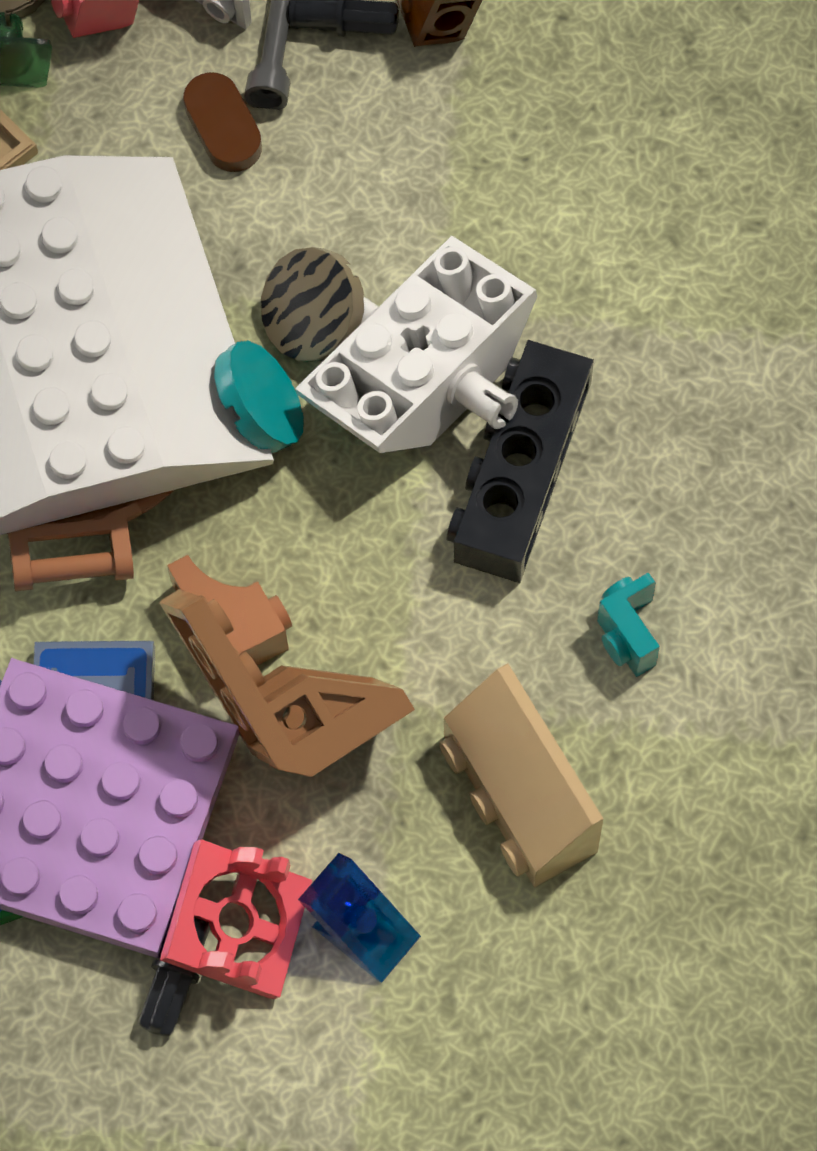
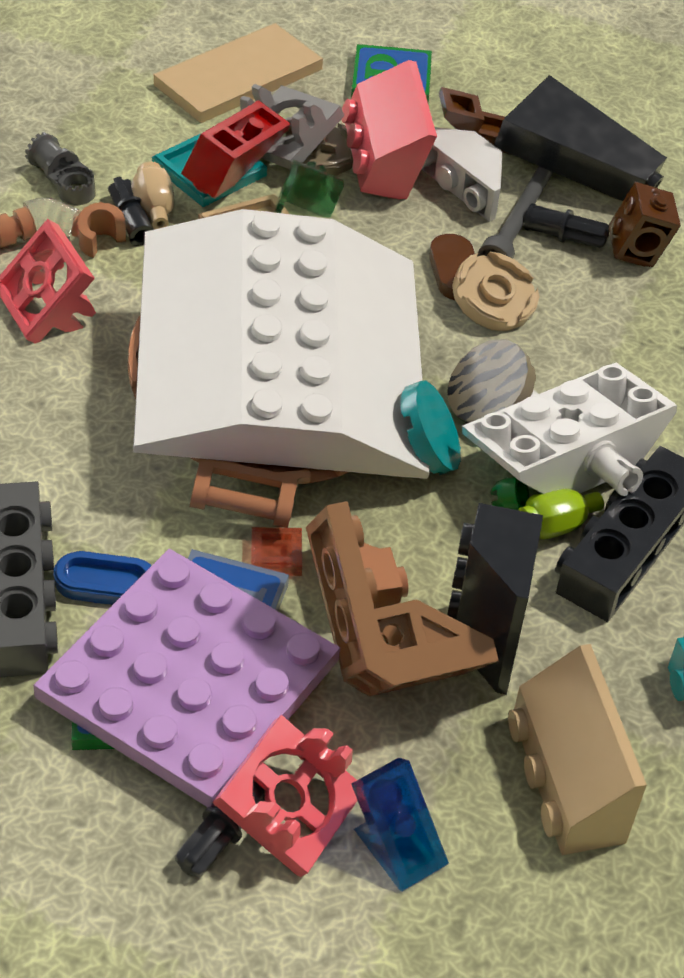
camera: 10 degrees right, 20 degrees down
(129, 609) = (277, 549): none -> clear red tile
(281, 151) = (495, 291): none -> tan tile
(370, 461) = (511, 493): none -> green hinge
(387, 613) = (496, 582): none -> black slope
(432, 460) = (562, 510): none -> lime plant

